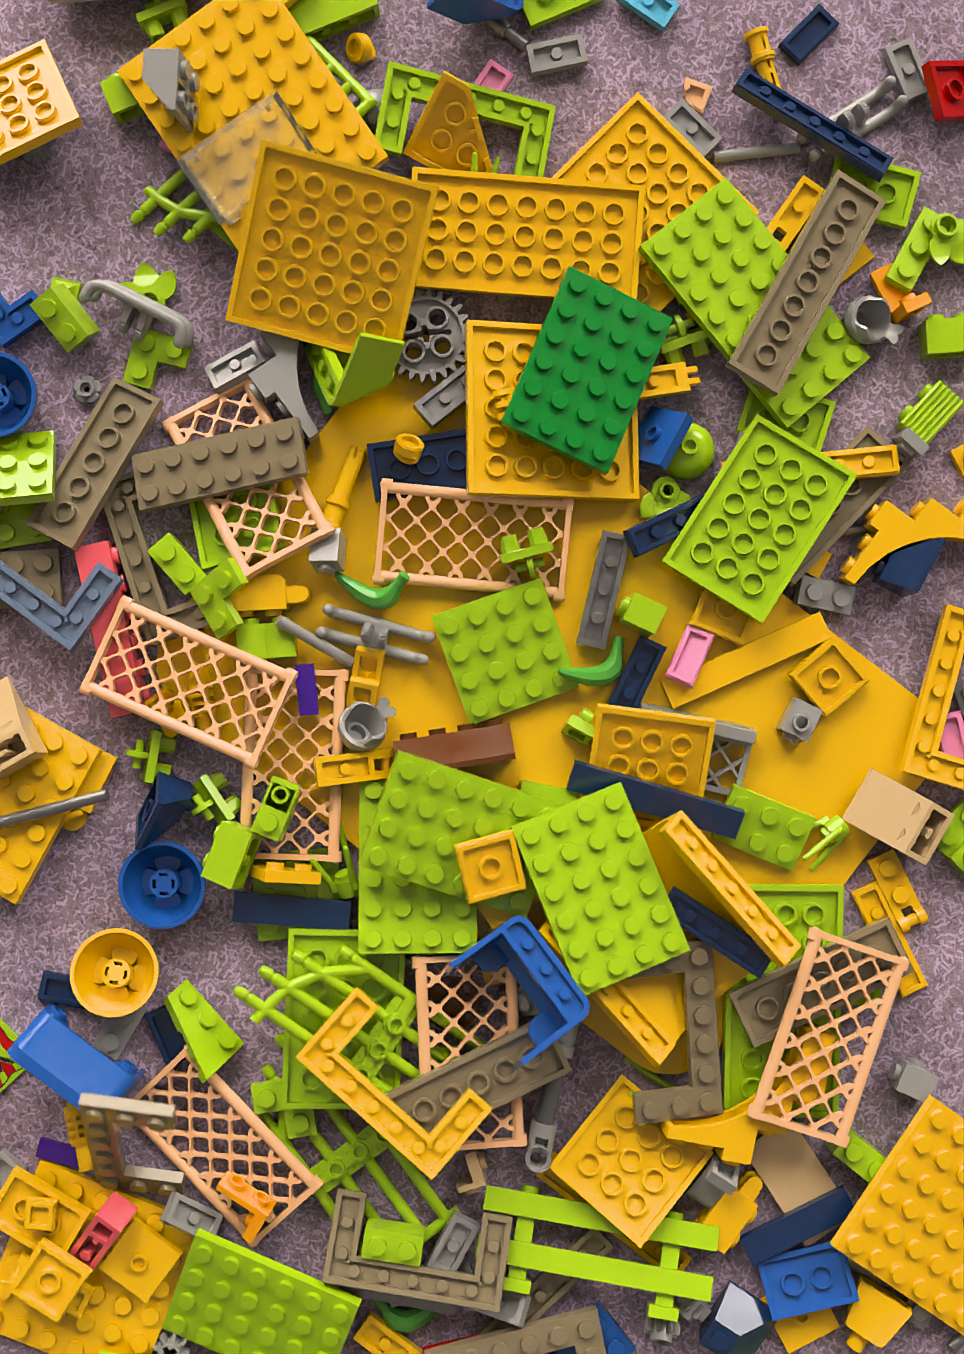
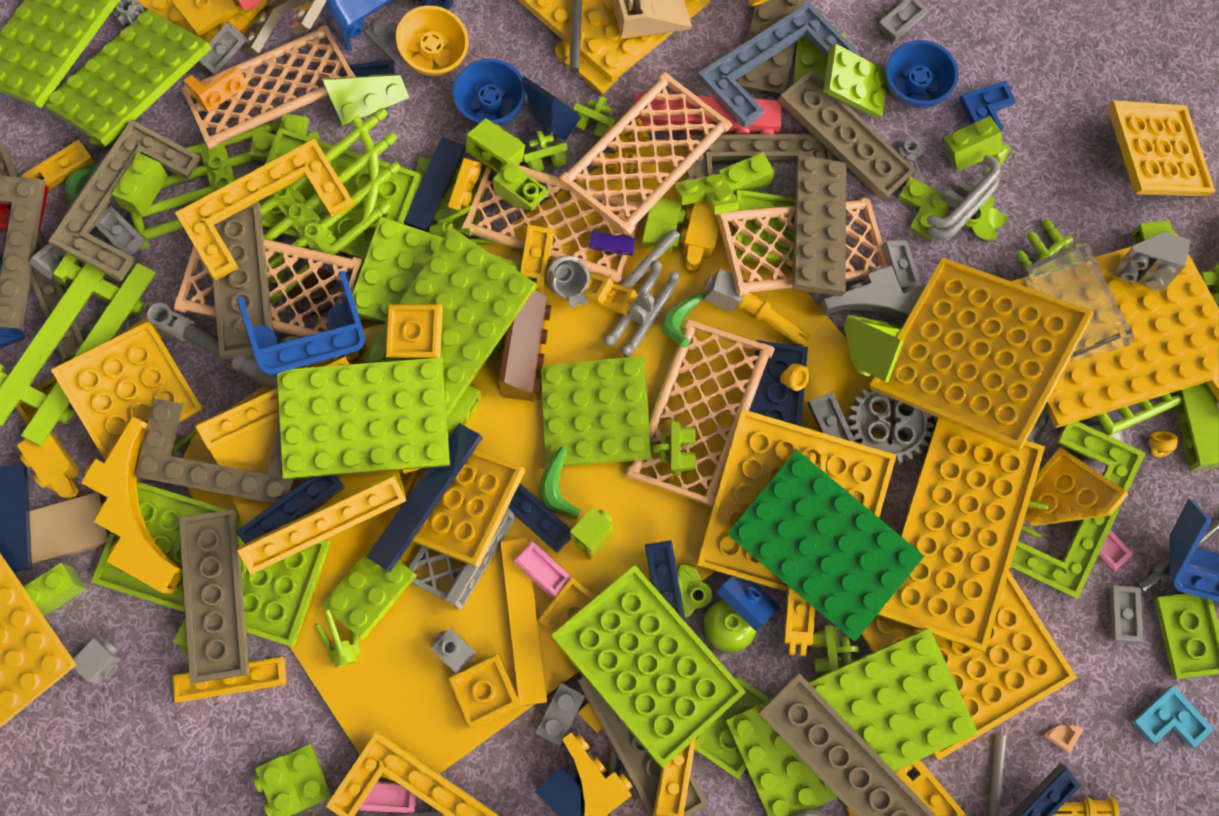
camera: 105 degrees right, 15 degrees down
(476, 1163) = (169, 268): tan bracket -> none
(580, 727) = (510, 453): lime tile -> none
(603, 590) = (623, 510): flat silver plate -> none
(693, 127) = (1031, 721): light grey plate -> none
(713, 1181) = (80, 453): light grey tile -> none
(866, 1060) = (71, 569): light nougat door -> none
(897, 889) = (270, 700): yellow plate -> none
(898, 816) = (334, 716): tan slope -> none

